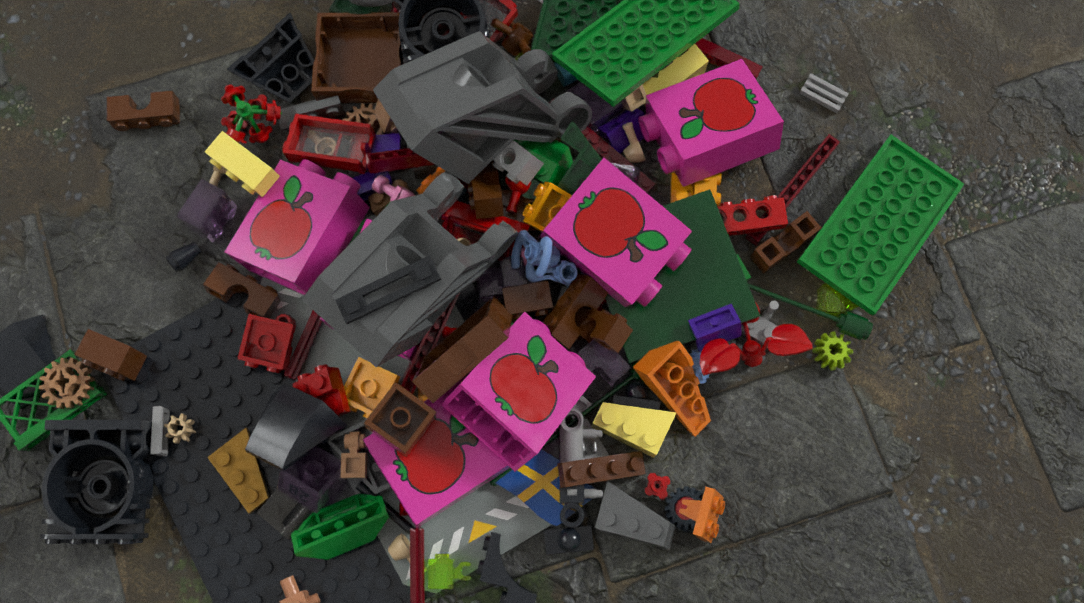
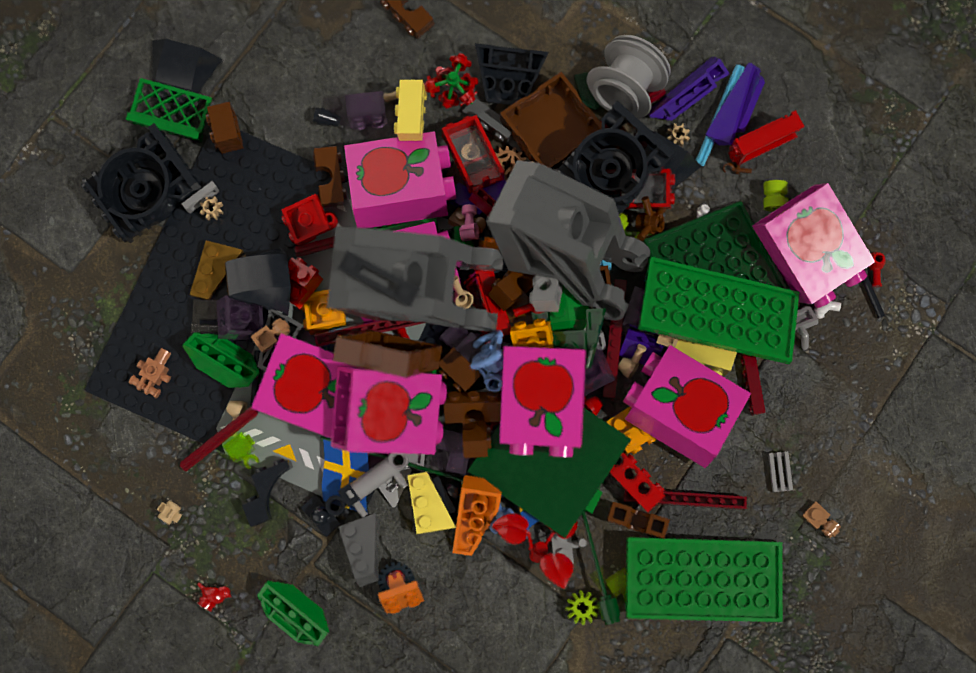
camera: 55 degrees right, 5 degrees up
(69, 385) = (192, 108): medium nougat gear -> none
(400, 419) = (308, 347): reddish brown brick -> none
(601, 469) = (381, 503): reddish brown plate -> none
(653, 479) = (404, 551): red plate -> none
(715, 324) = (535, 511): dark purple panel -> none
(886, 91) = (817, 516): none -> medium nougat plate

